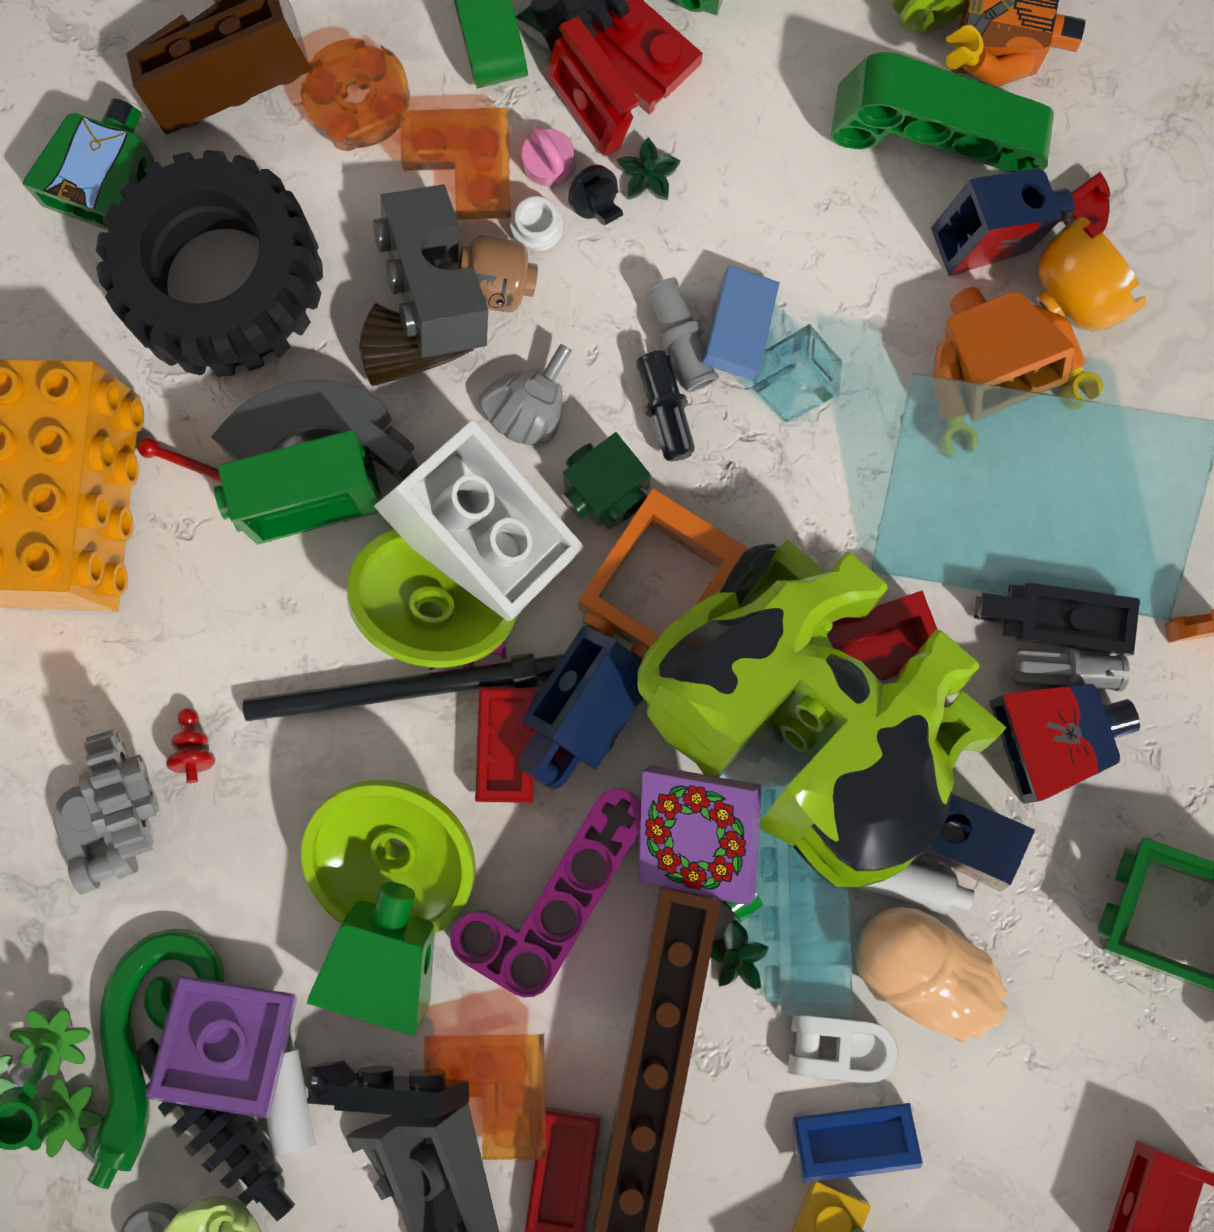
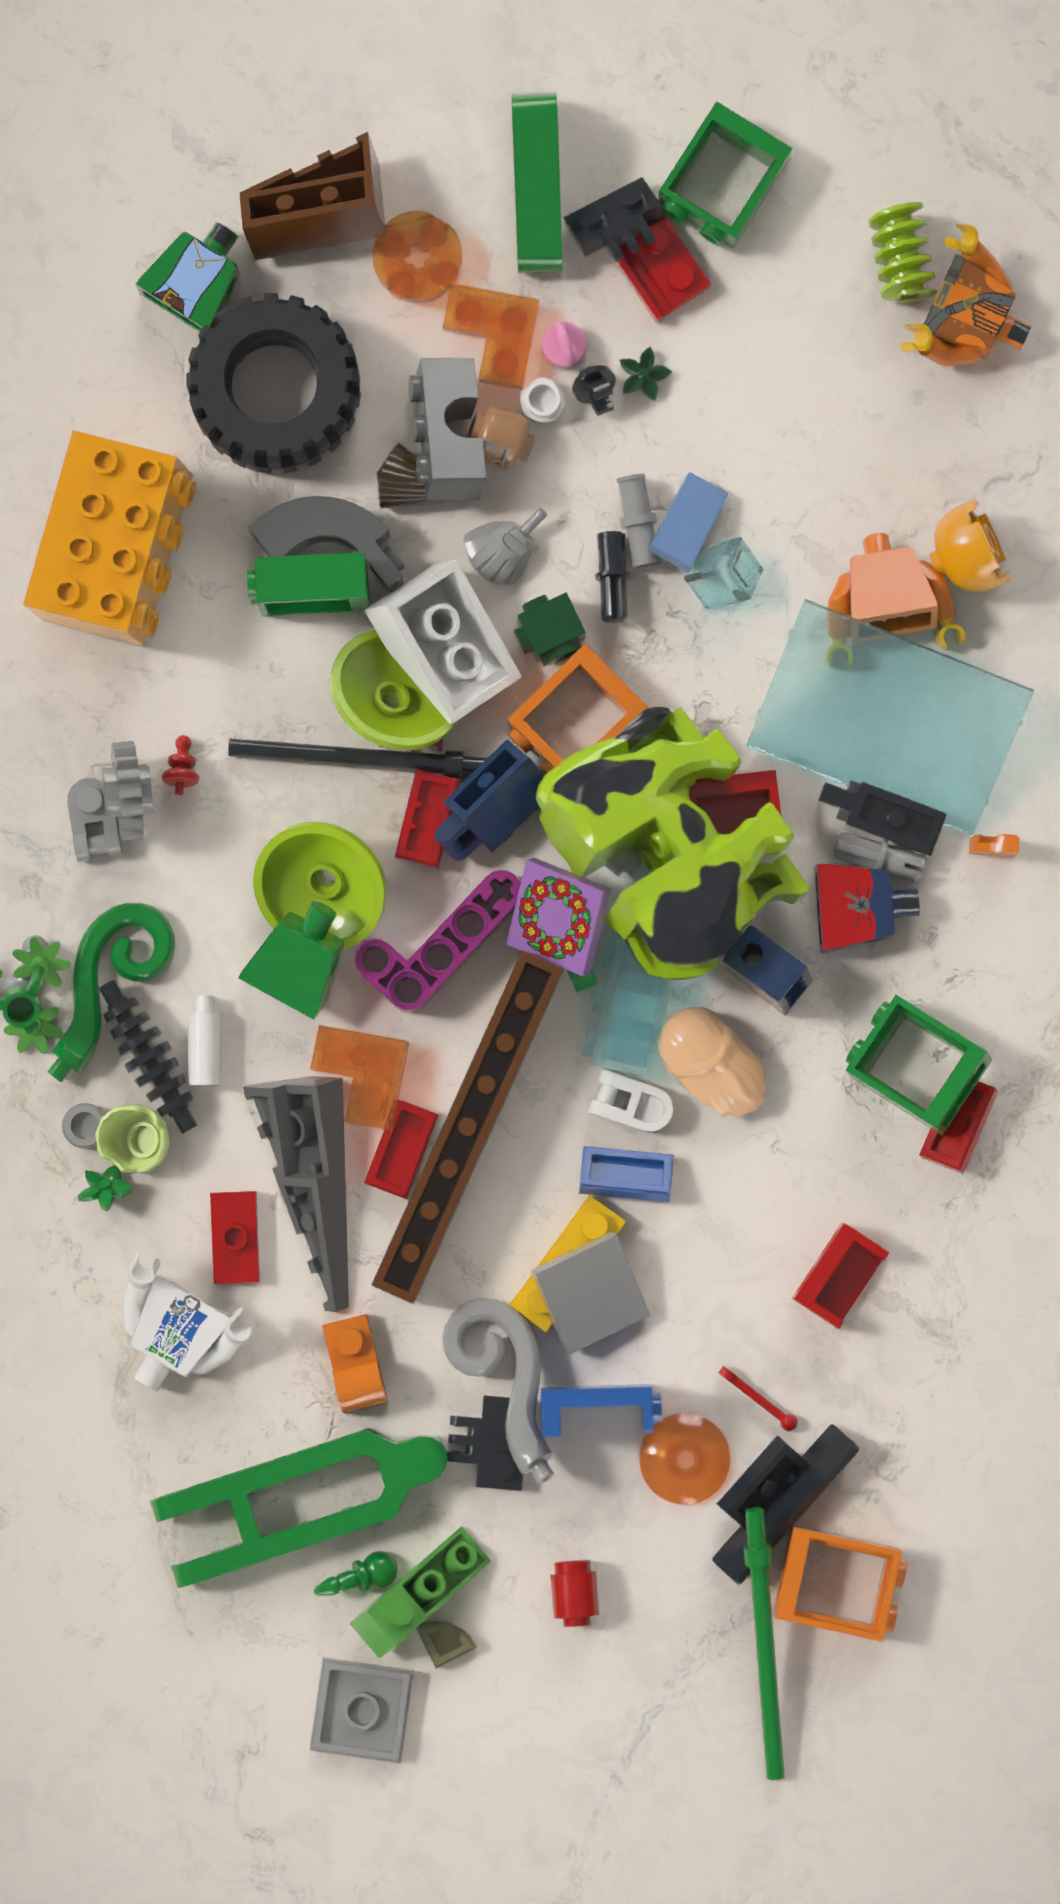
camera: 15 degrees right, 5 degrees up
(149, 448) = (192, 519): red hinge -> none
(222, 1047) = (169, 995): medium lavender tile -> none
(380, 1092) = (277, 1052): black hinge -> none
(591, 86) = (610, 298): red plate -> none
(738, 956) = (569, 1017): dark green plant -> none
(926, 888) = (720, 996): white cylinder -> none
(940, 111) = (889, 383): green beam -> none
(999, 219) = (917, 483): dark blue torso -> none
(1092, 203) = (996, 486): red tile -> none

